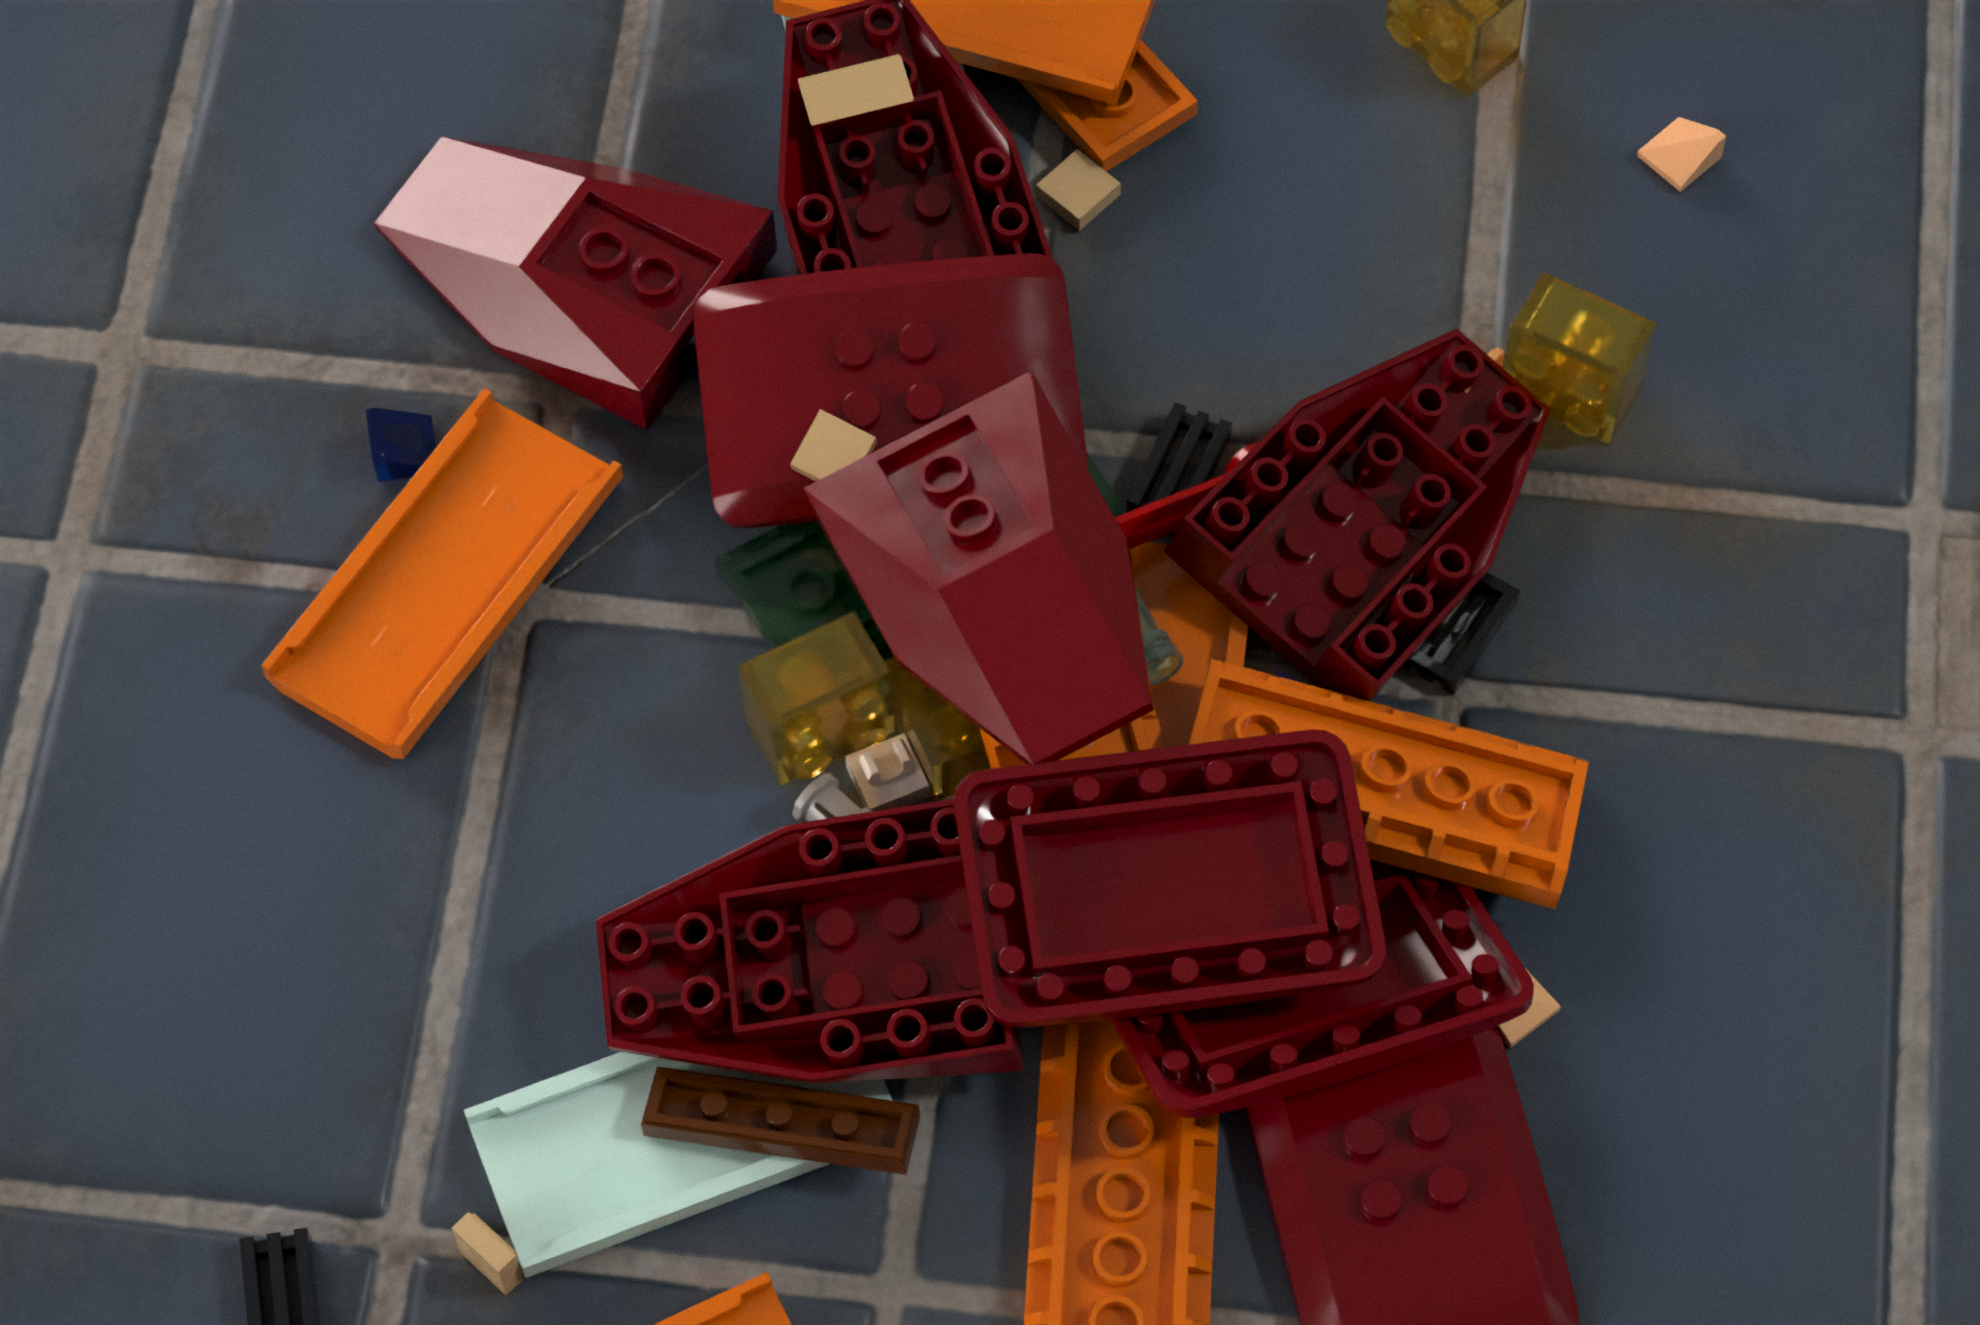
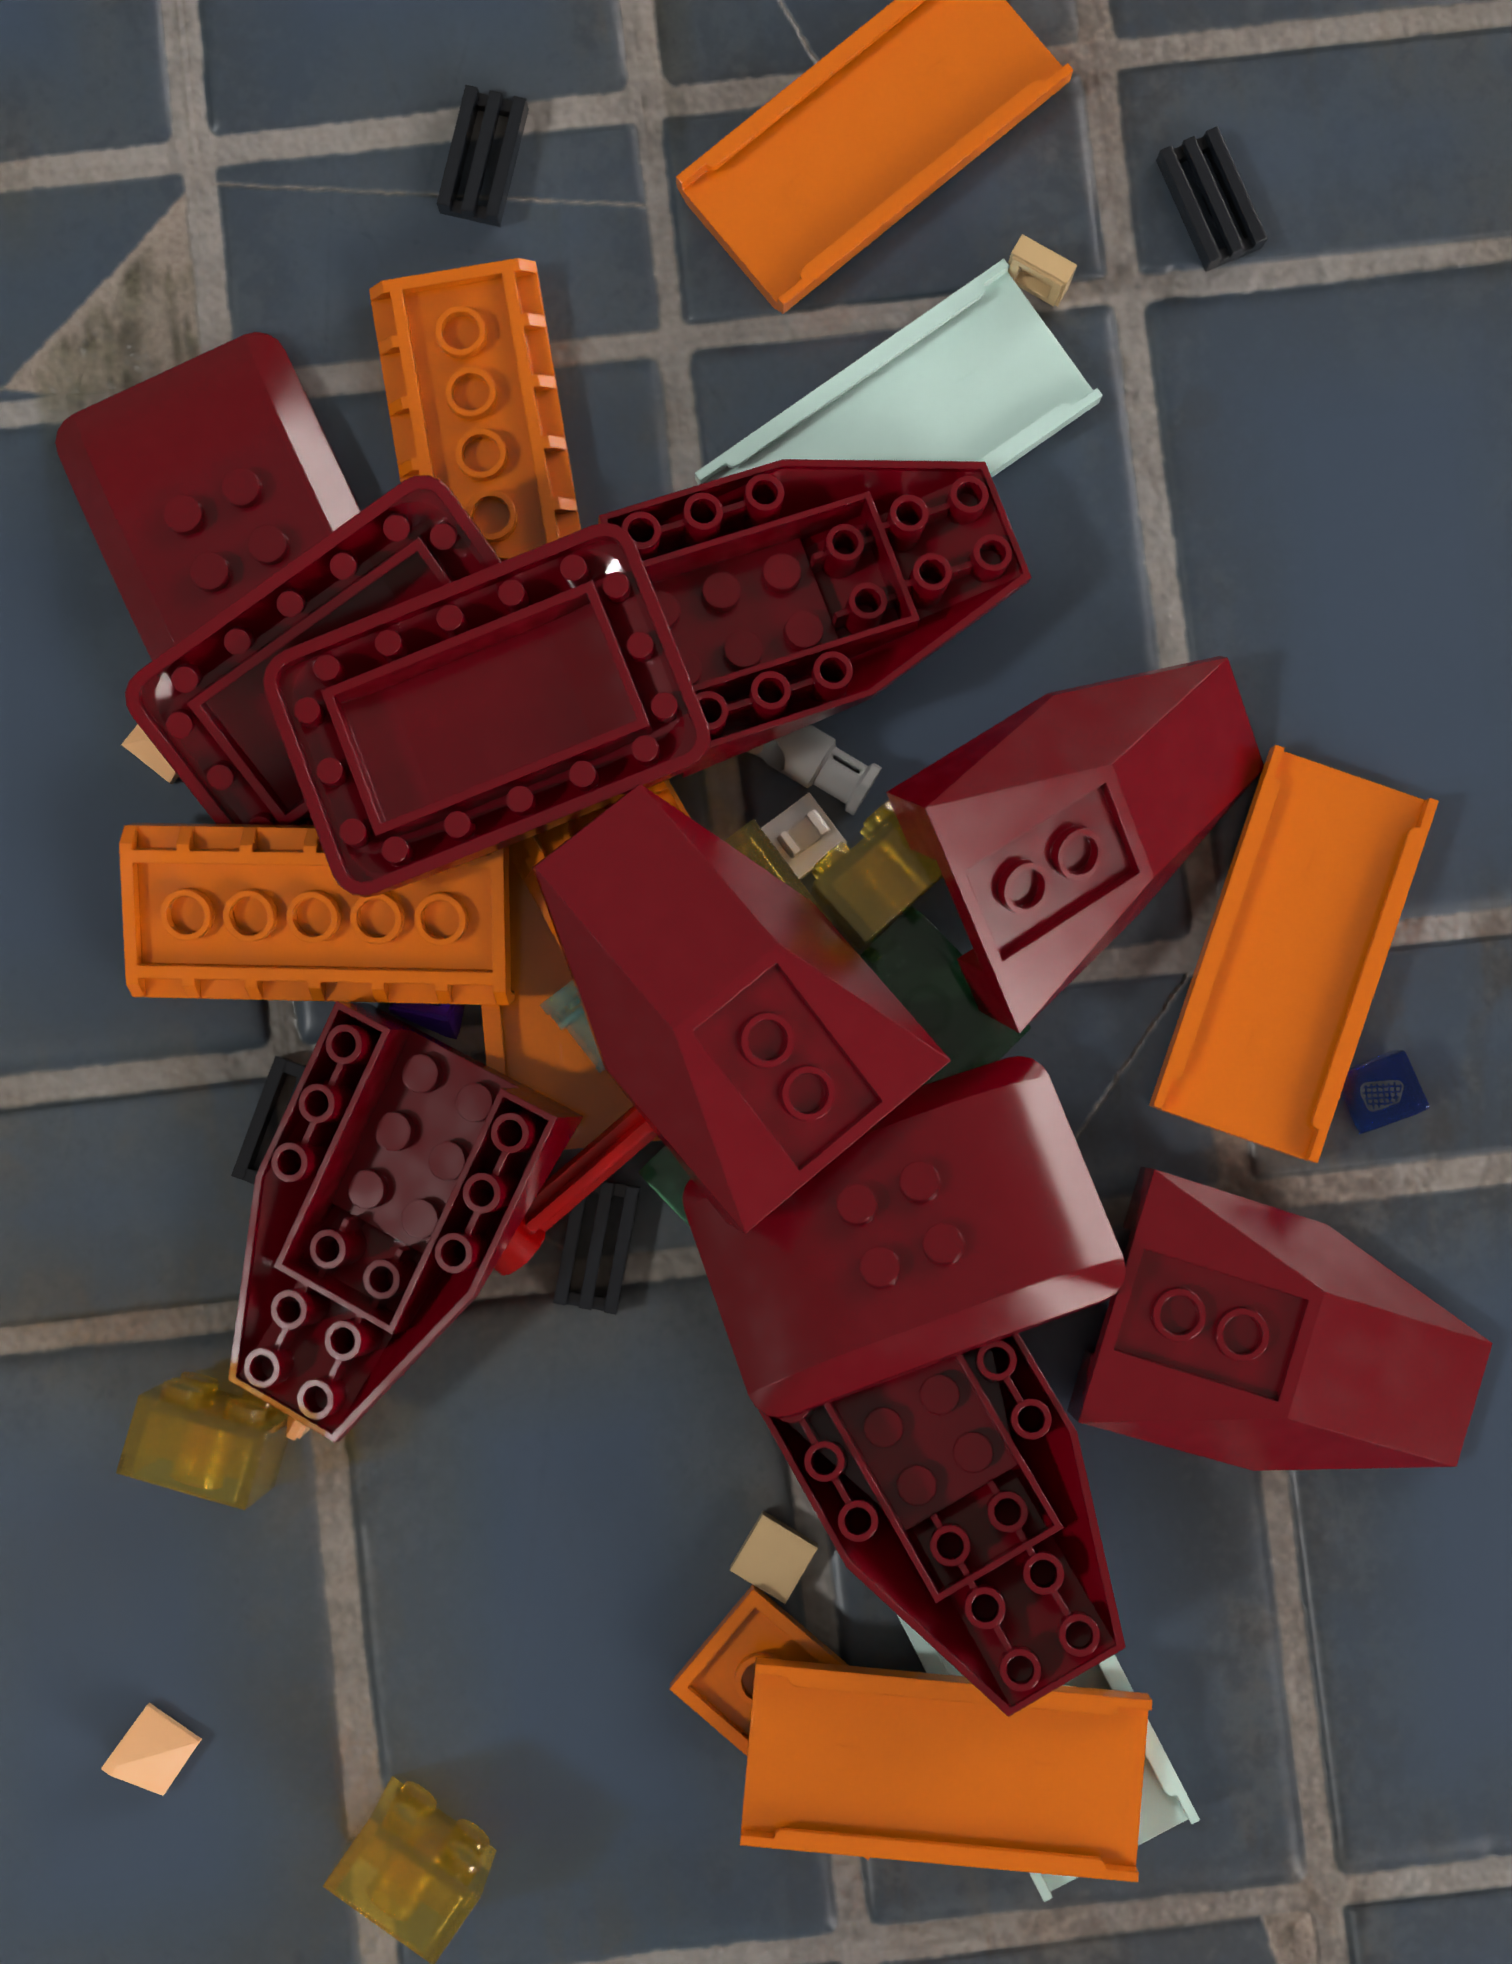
camera: 165 degrees right, 25 degrees up
(618, 689) = (1076, 820): none -> dark red wedge
(781, 1120) = (737, 442): reddish brown tile -> none
(830, 447) = (935, 1125): tan tile -> none
(855, 89) = (1025, 1573): tan sticker -> none

